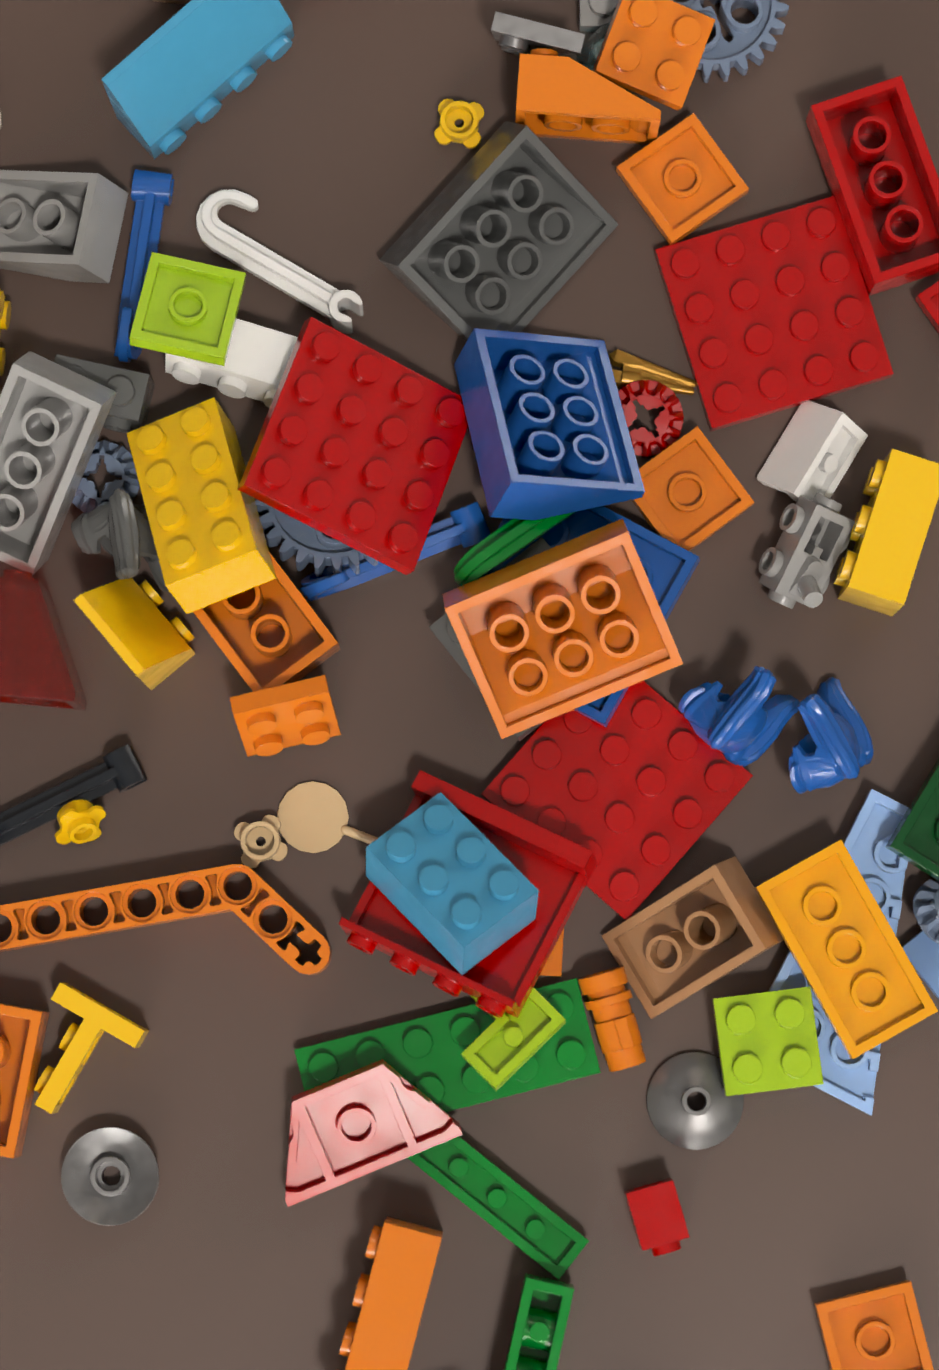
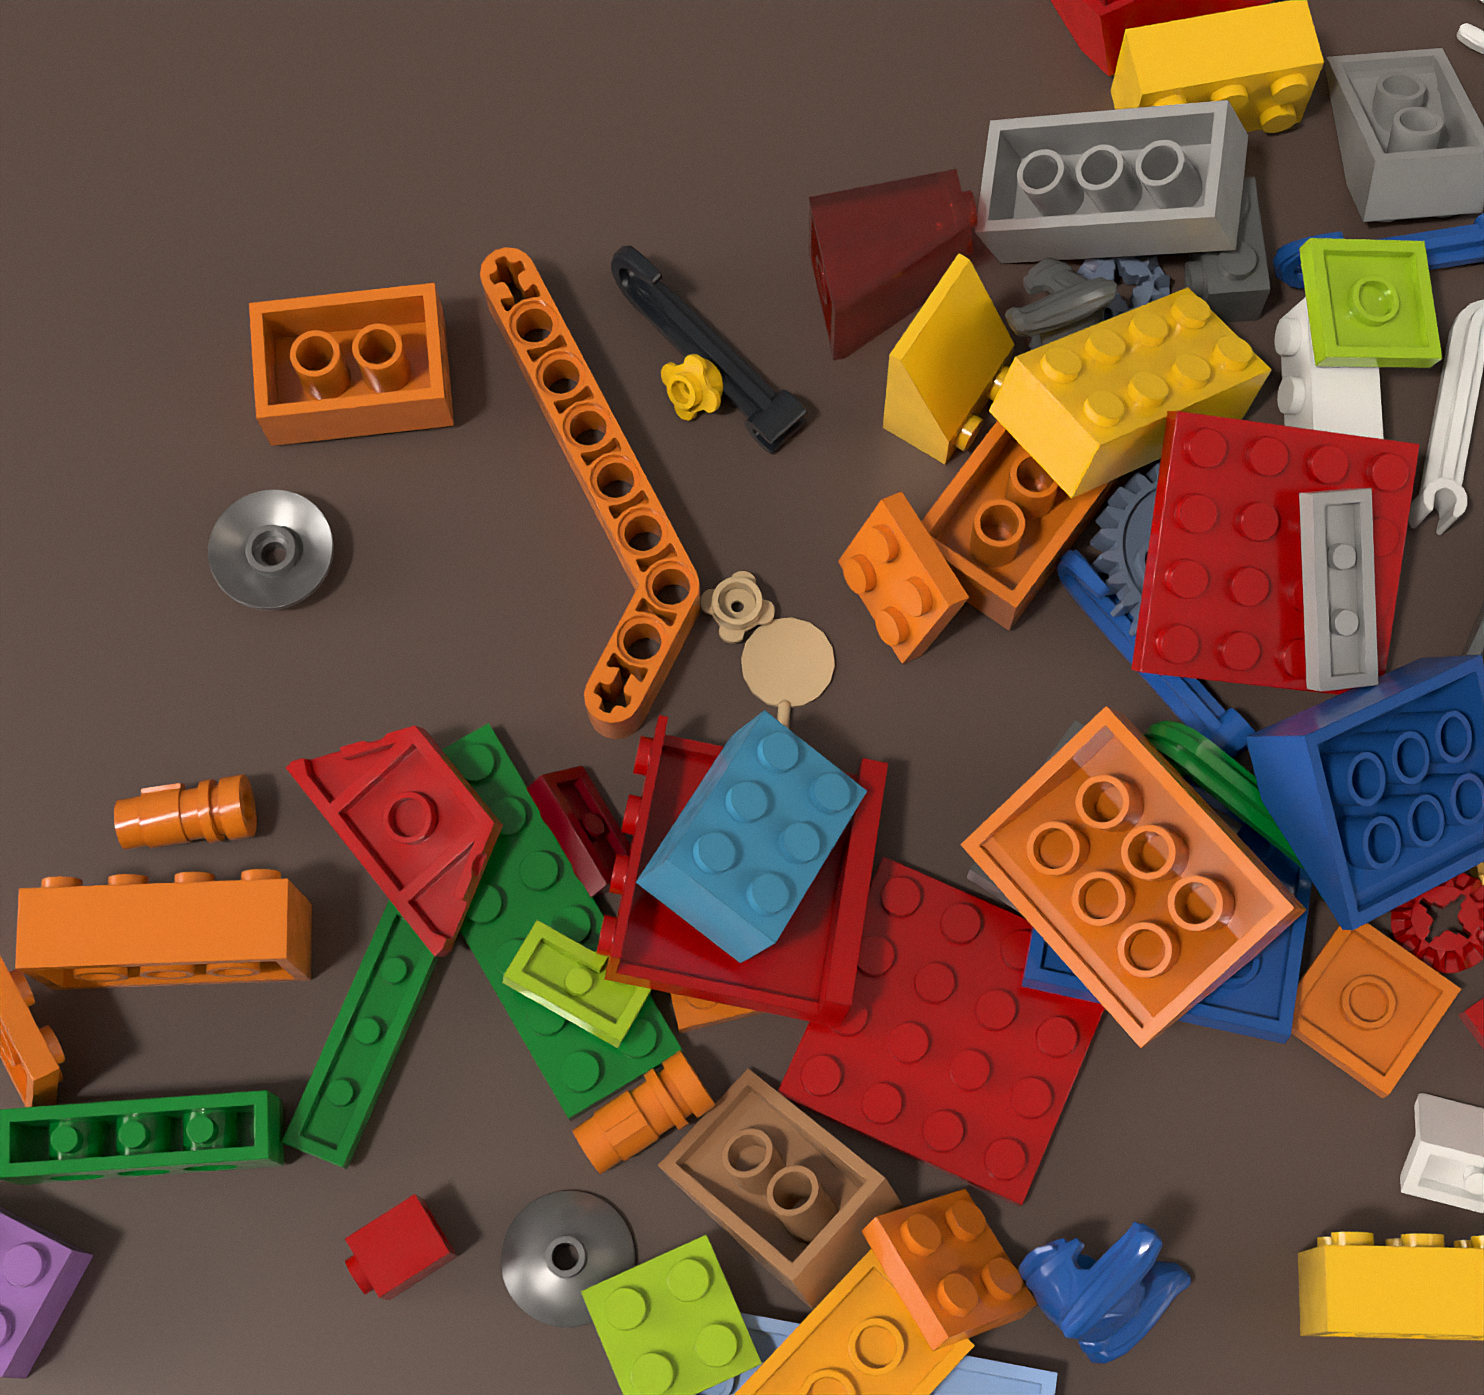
camera: 75 degrees right, 10 degrees down
(80, 1042) = (424, 469): yellow bracket -> none
(295, 1297) = (179, 815): none -> orange axle
(395, 1002) = (580, 825): none -> dark red plate
(400, 412) = (1338, 588): none -> light grey plate
(741, 722) = (1088, 1156): blue hair -> none
(784, 840) = (948, 1268): none -> orange plate
(805, 552) = (1332, 1184): light grey brick -> none

